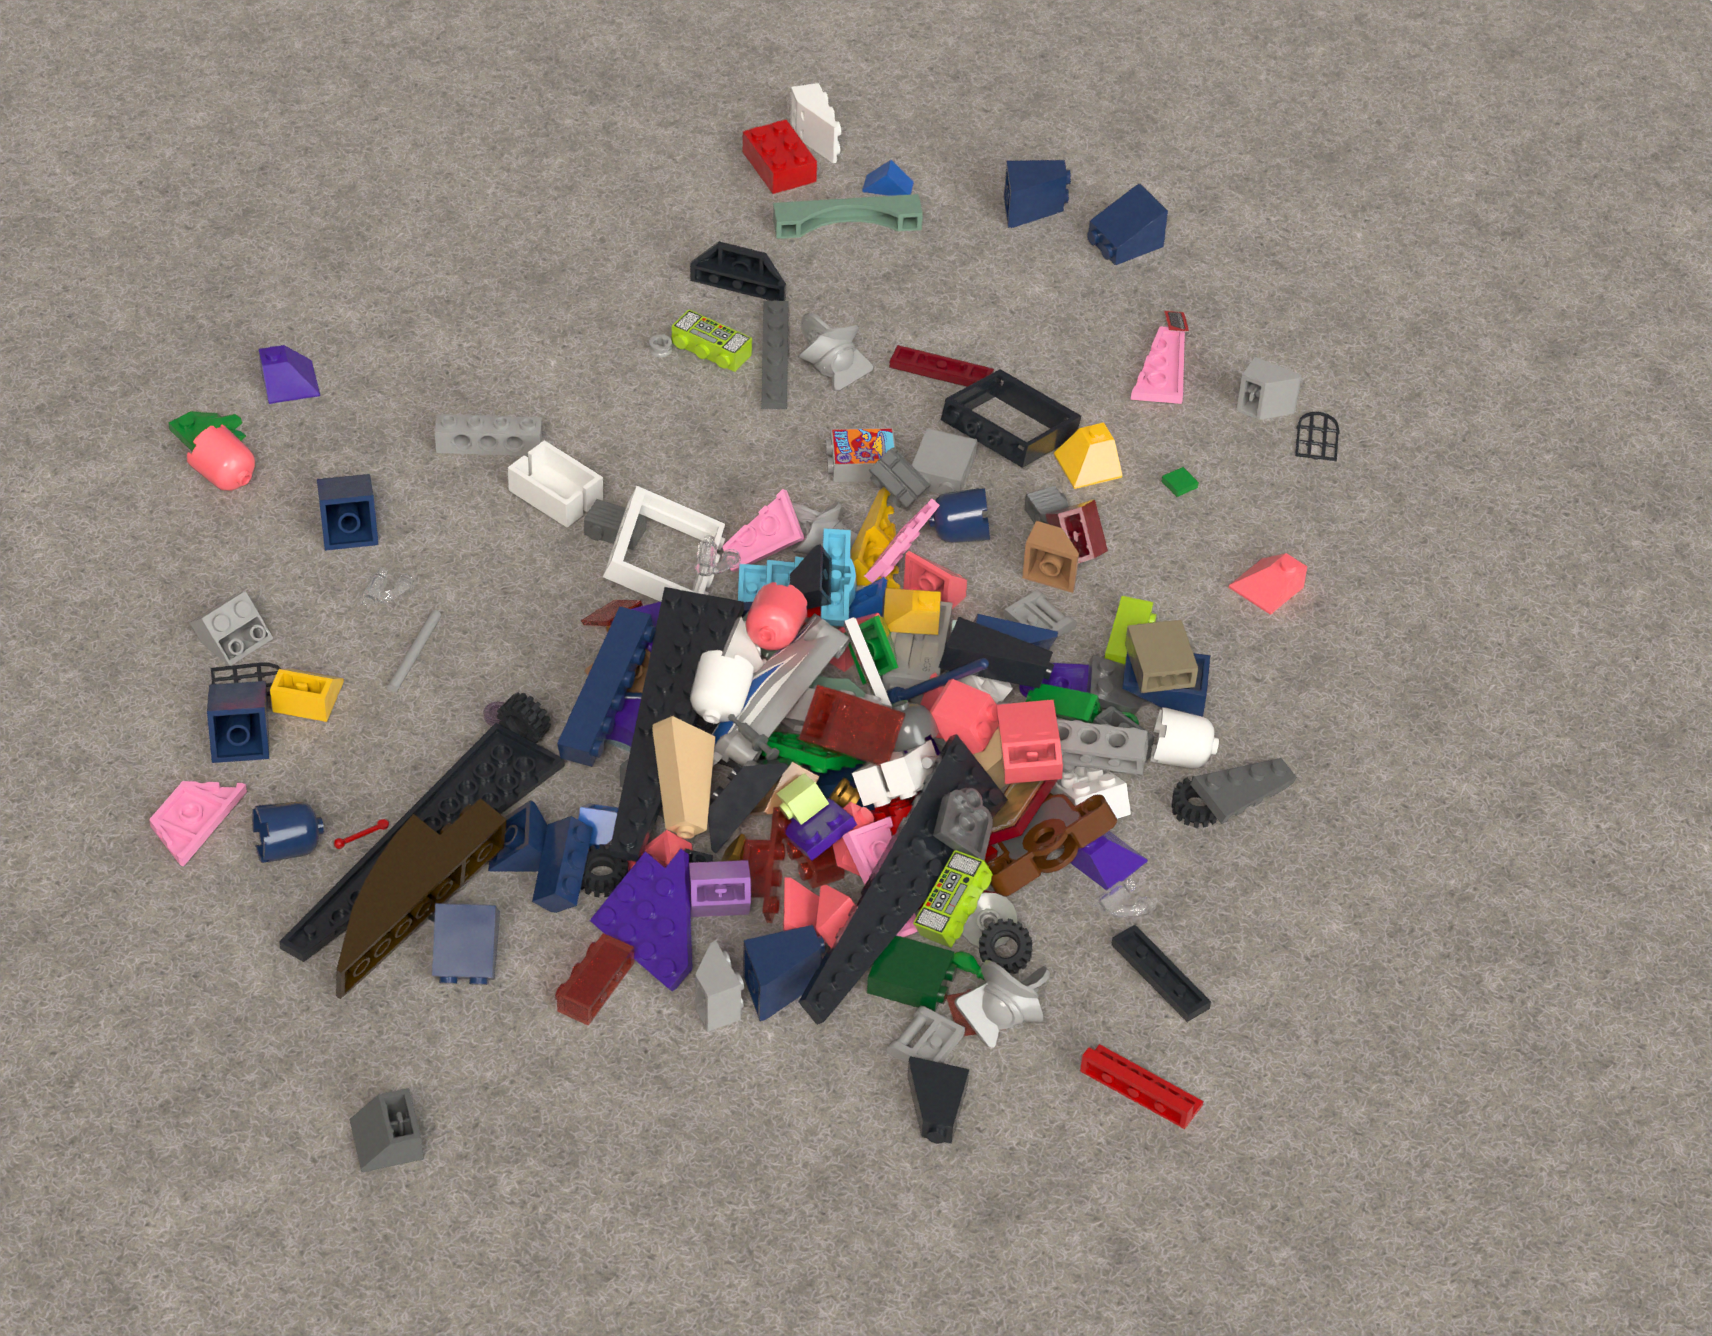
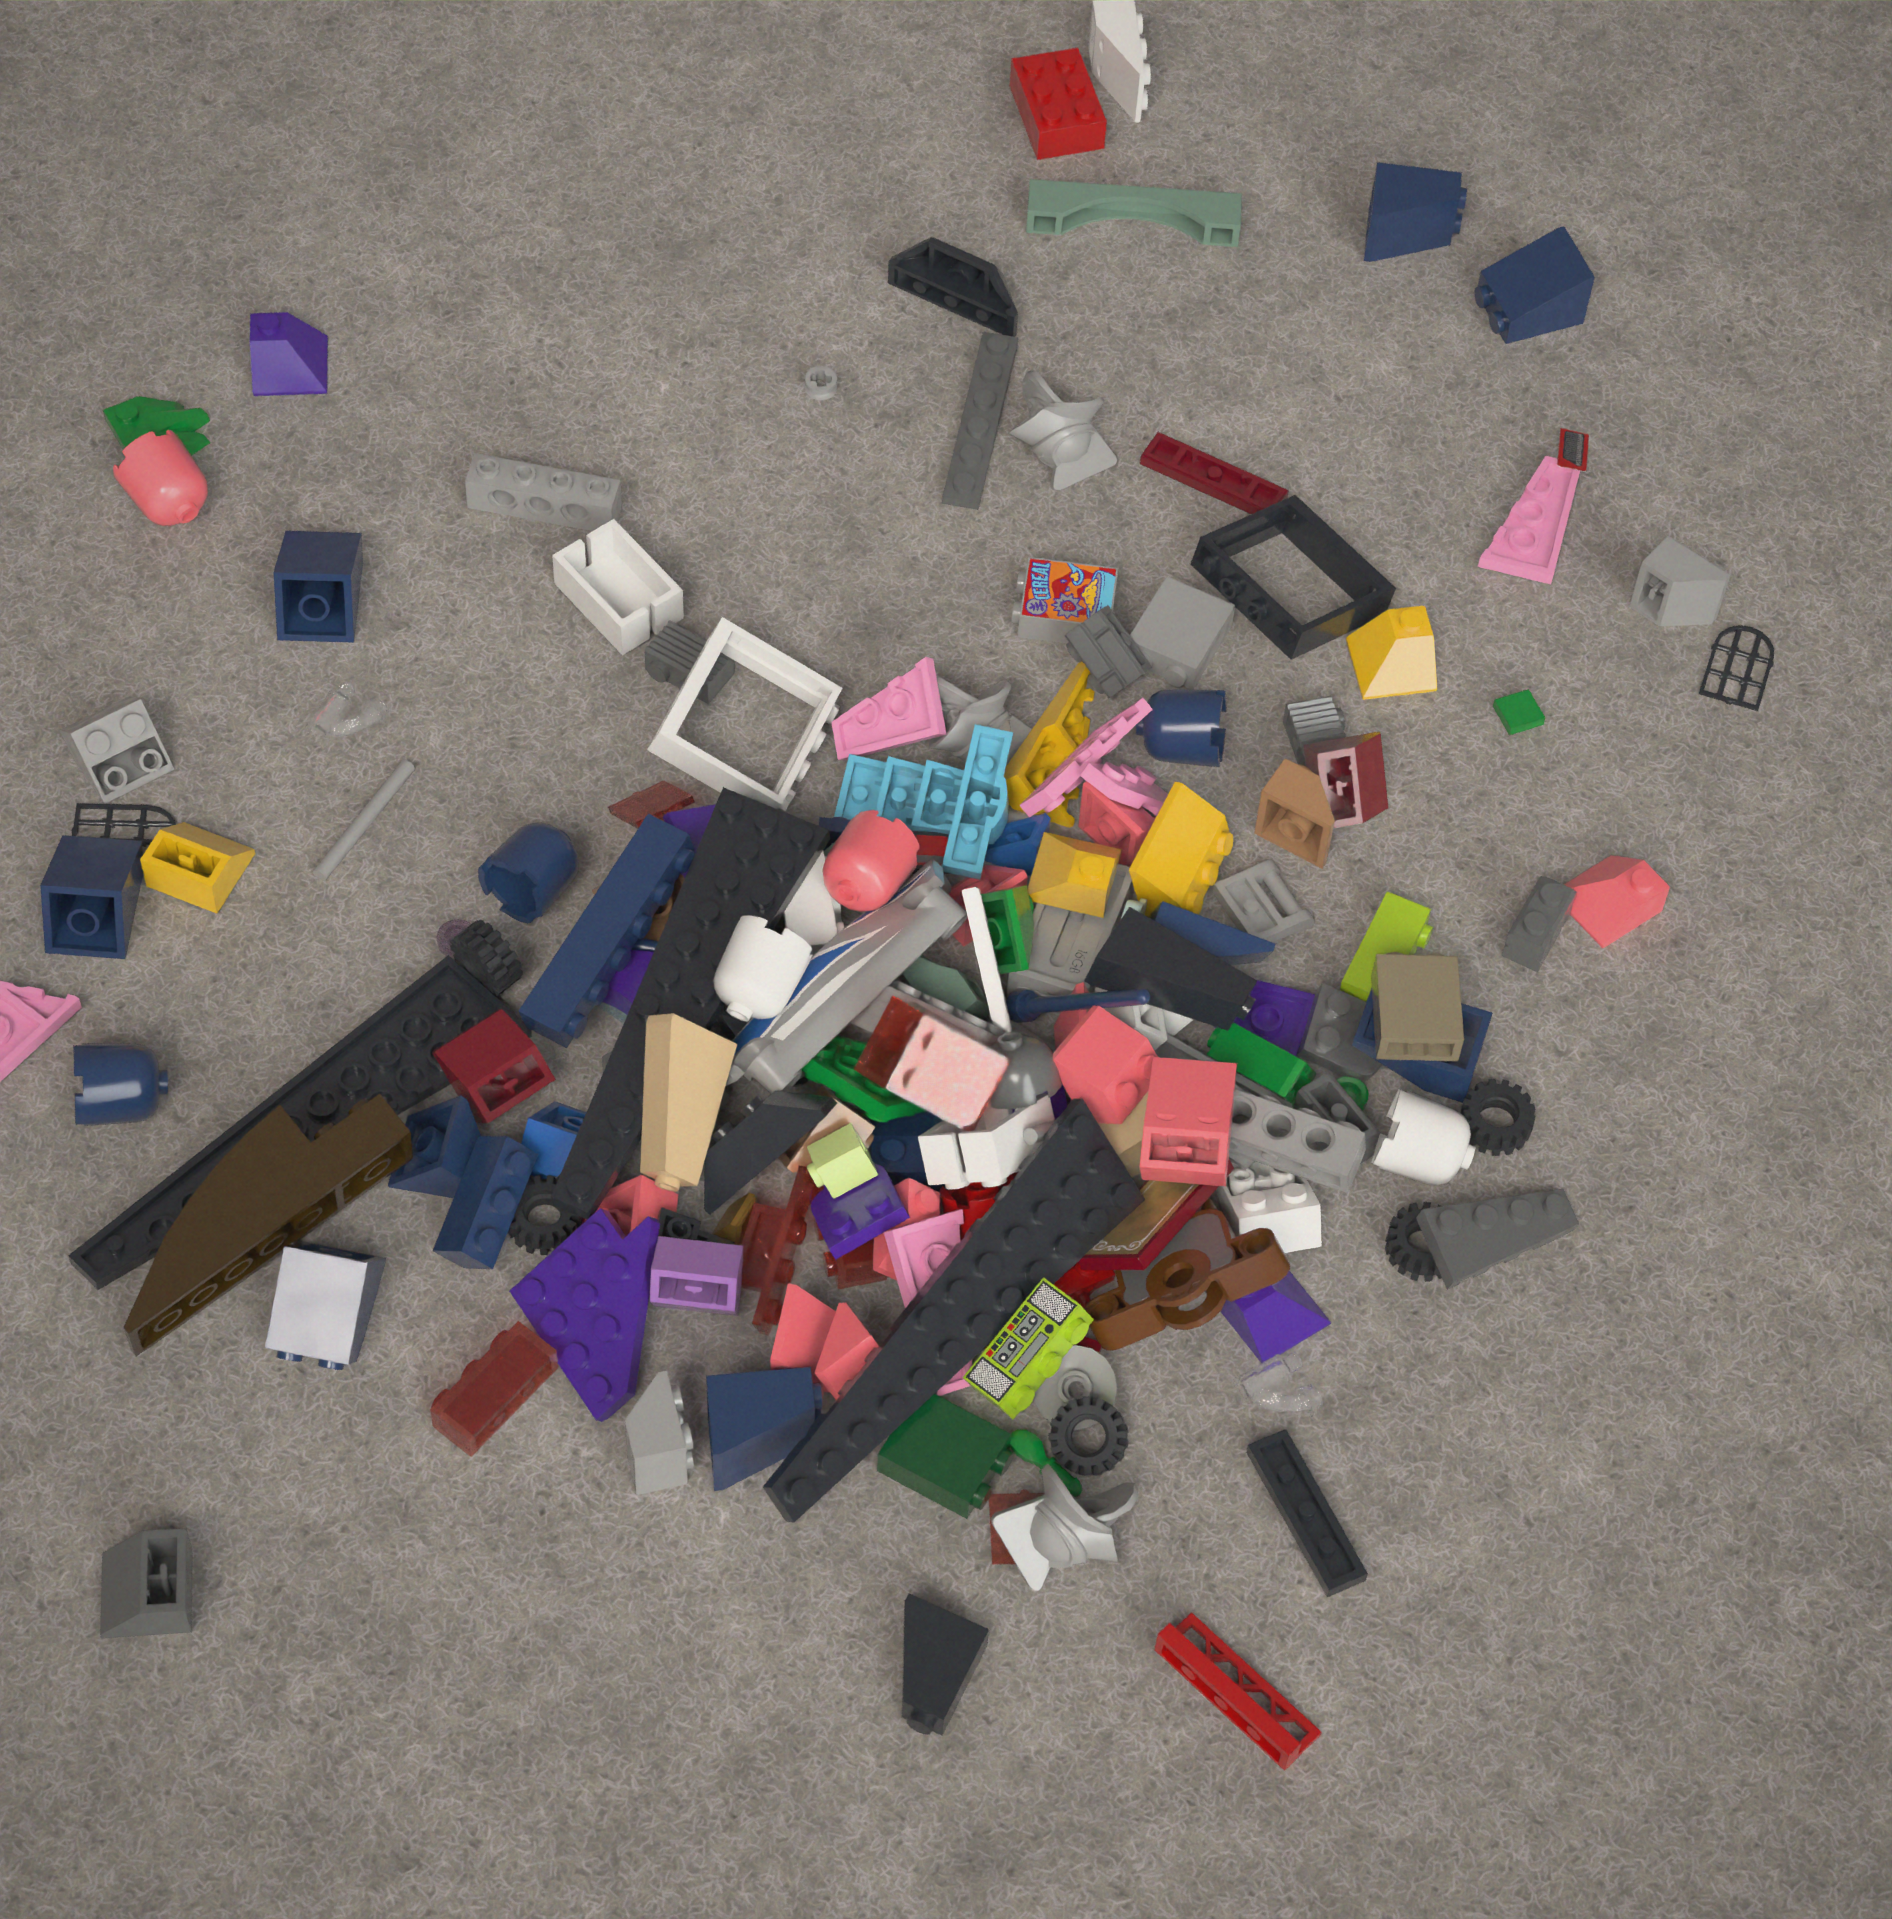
camera: 10 degrees right, 10 degrees up
(382, 824) = (256, 1089): red hinge -> none
(539, 662) = (530, 870): none -> dark blue cylinder
(547, 780) = (493, 1066): none -> dark red slope
(706, 557) = (800, 740): clear plant -> none
(711, 340) = (893, 387): lime brick -> none
(758, 741) = (794, 1065): dark grey piece -> none
(814, 577) = (940, 804): black slope -> none
(848, 794) = (909, 1165): pearl gold wheel -> none
(888, 181) = (1207, 163): blue slope -> none
(935, 1042) = (953, 1572): light grey plate -> none
(939, 556) = (1126, 785): none -> bright pink wing
(964, 822) = (1066, 1239): flat silver plate -> none
(979, 586) = (1181, 852): none -> yellow slope
(1226, 602) = (1539, 923): none -> dark grey brick
(1231, 710) = (1505, 1098): none -> black tyre

